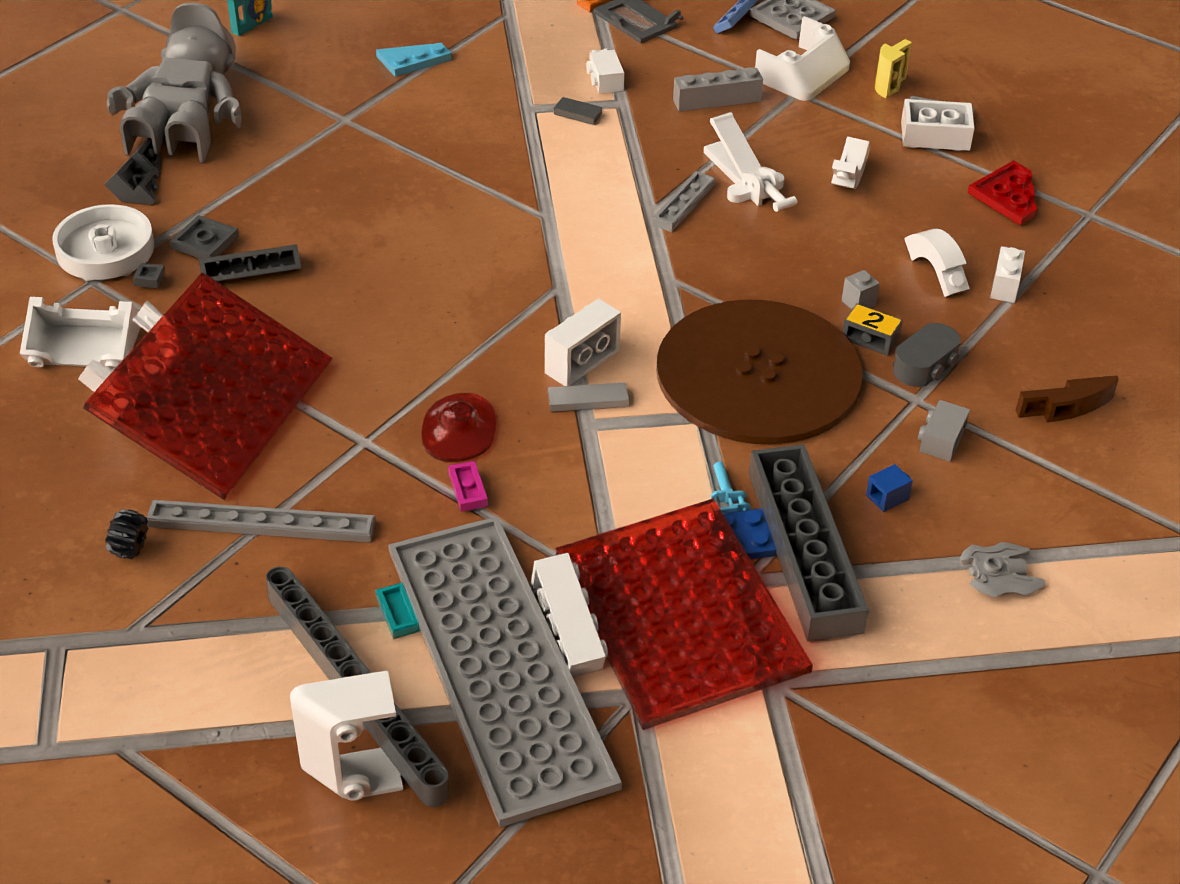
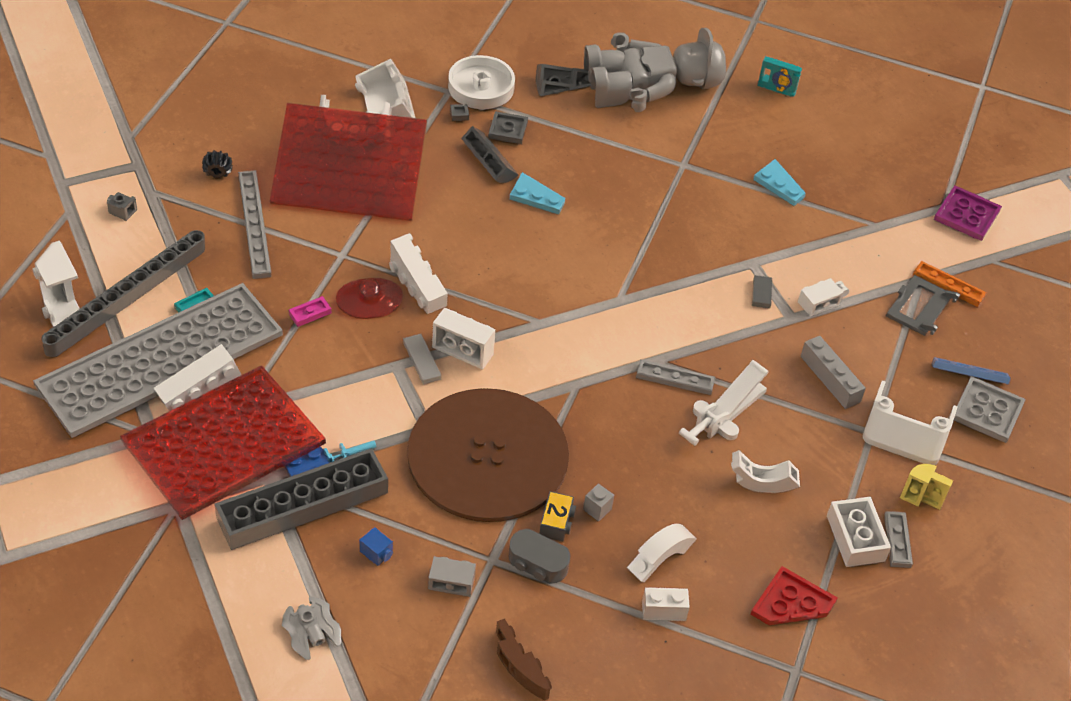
camera: 70 degrees right, 5 degrees up
(152, 667) = (121, 205): none -> dark grey brick
(339, 243) = (536, 194): none -> medium azure wing
(448, 366) = (417, 274): none -> white wedge

